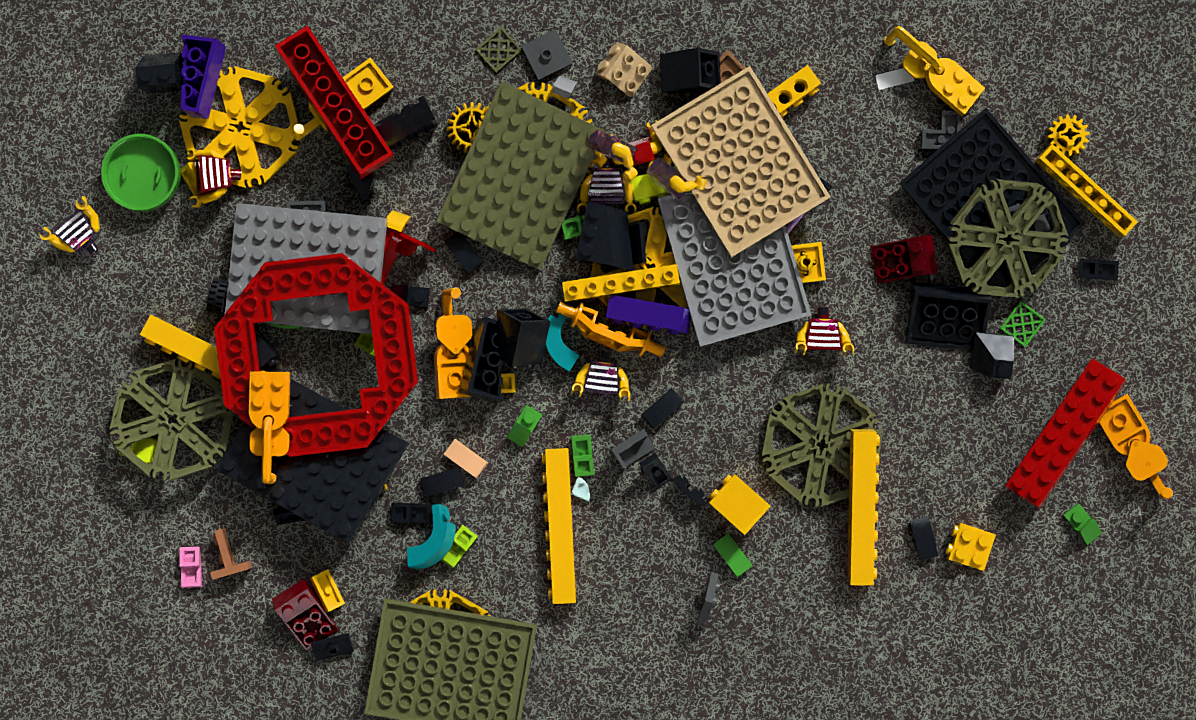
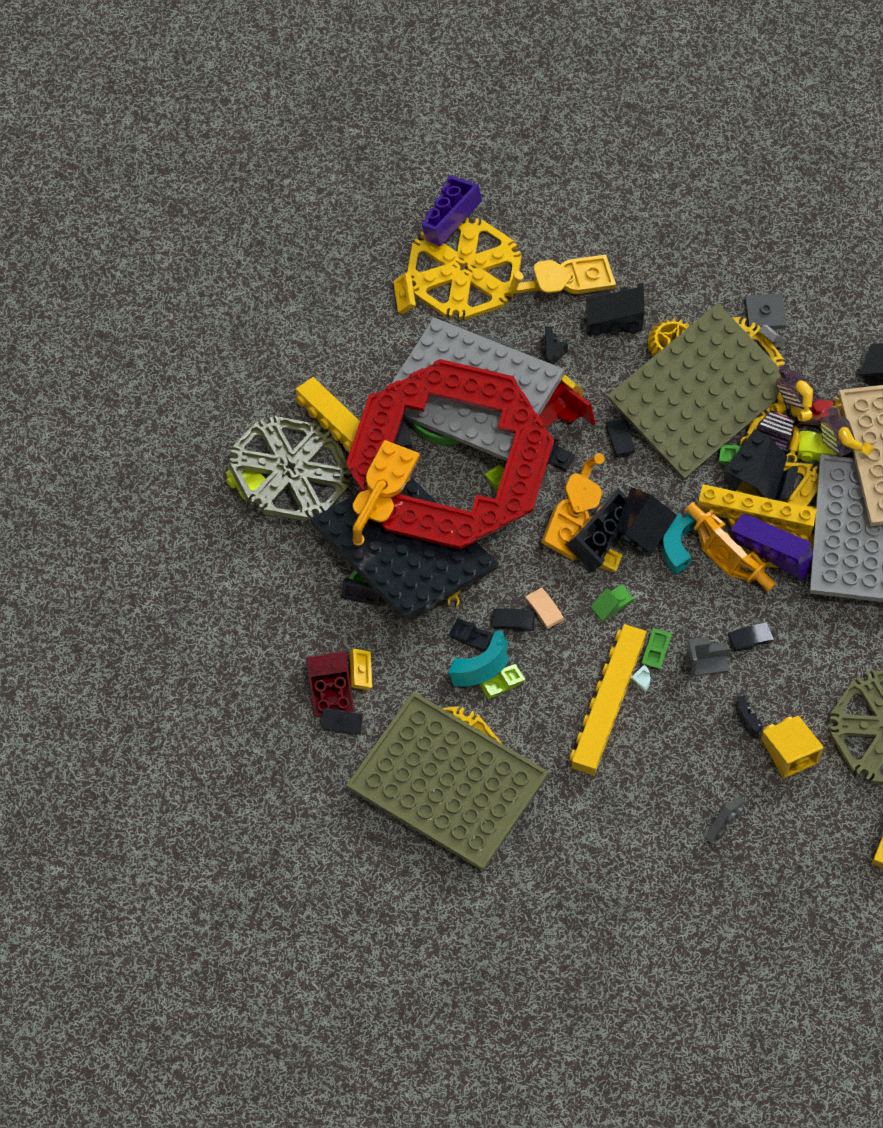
camera: 25 degrees right, 25 degrees down
(77, 231) = (280, 291): torso -> none
(141, 172) = (359, 268): bright green brick -> none
(160, 73) = (413, 198): black slope -> none
(190, 567) = (243, 601): bright pink slope -> none
(212, 175) = (422, 290): torso -> none
(217, 297) = (379, 382): black tyre -> none
(226, 556) = (279, 613): nougat bracket -> none
(334, 102) = (559, 267): red brick -> none
(507, 59) = (719, 282): olive window -> none
(602, 377) = (703, 587): torso -> none
(624, 68) = (833, 346): tan bracket -> none
(655, 470) = (721, 685): black slope -> none
(733, 555) = (766, 792): bright green slope -> none

